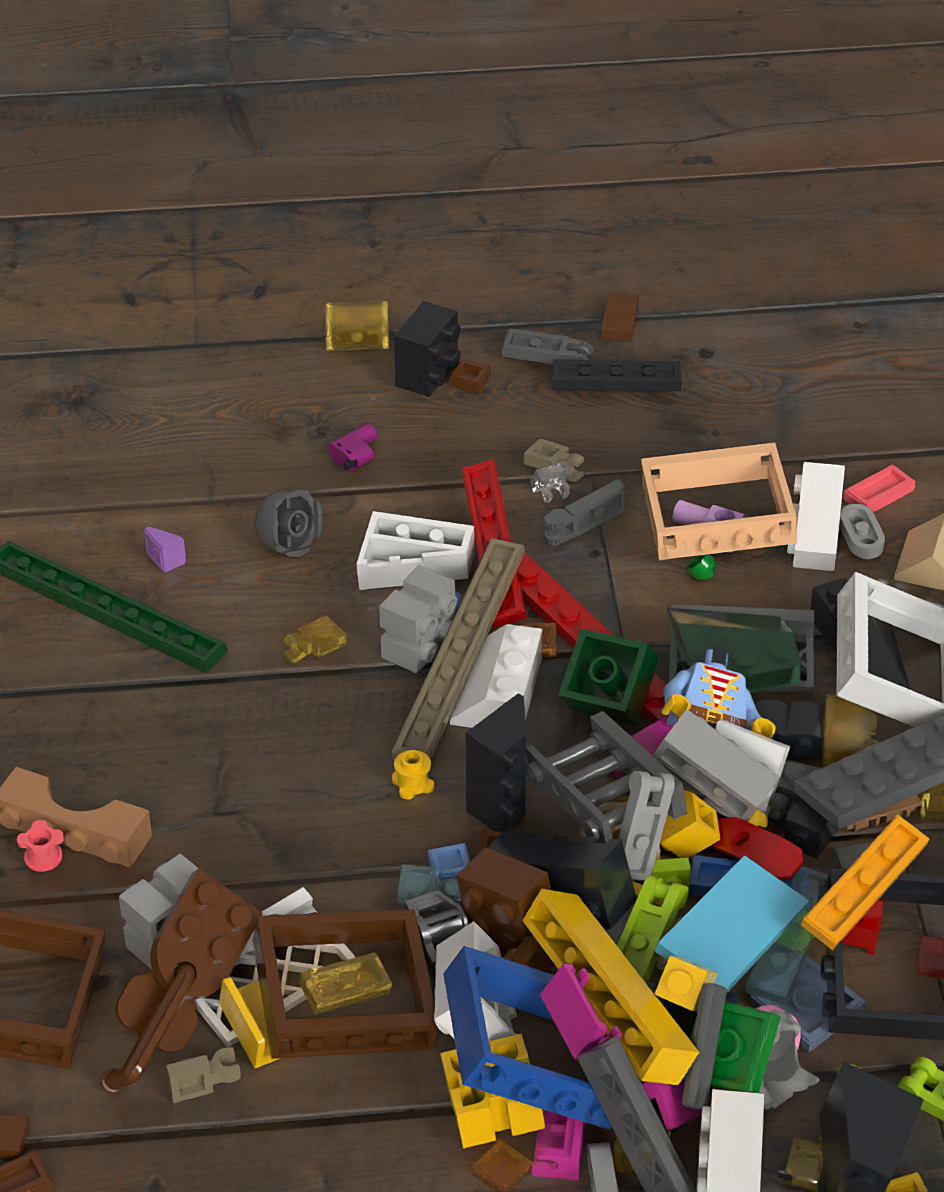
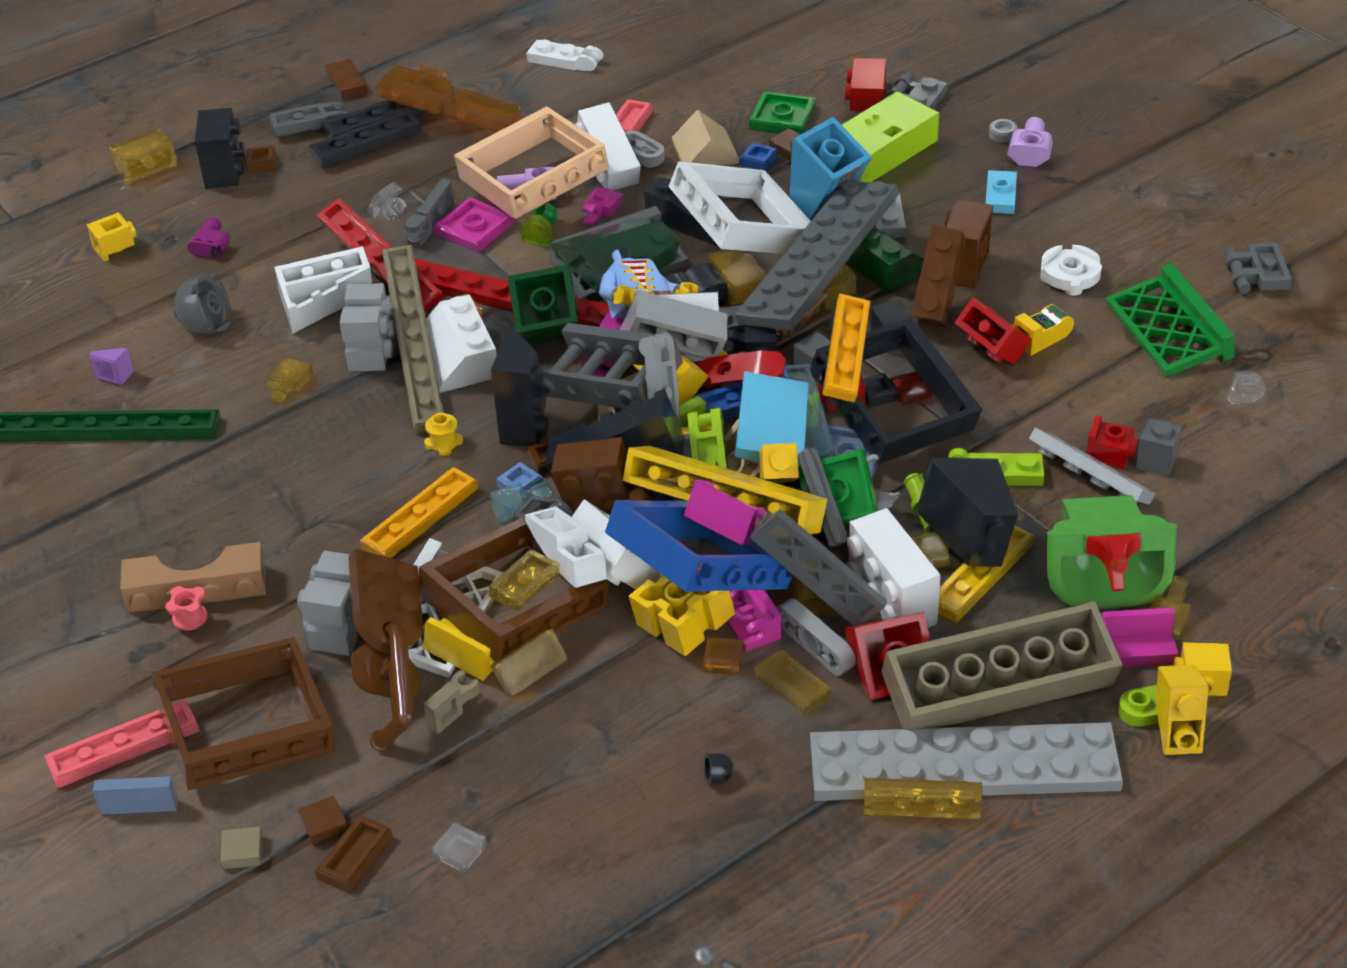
camera: 30 degrees left, 0 degrees up
(264, 403) = (111, 235): none -> yellow brick
(305, 1072) = (529, 662): none -> clear yellow plate
(329, 852) = (419, 514): none -> light orange tile
(417, 966) = (567, 544): none -> white slope
(548, 453) = (367, 186): dark tan plate -> none
(586, 397) = (365, 138): none -> black plate
(621, 545) = (473, 224): none -> dark pink tile
(678, 582) = (536, 230): none -> clear neon green tile
(688, 376) = (431, 92): none -> clear orange piece
(770, 578) = (601, 203): none -> dark pink plate
(866, 382) = (564, 55): none -> white hinge
(899, 942) = (879, 390): none -> black tile

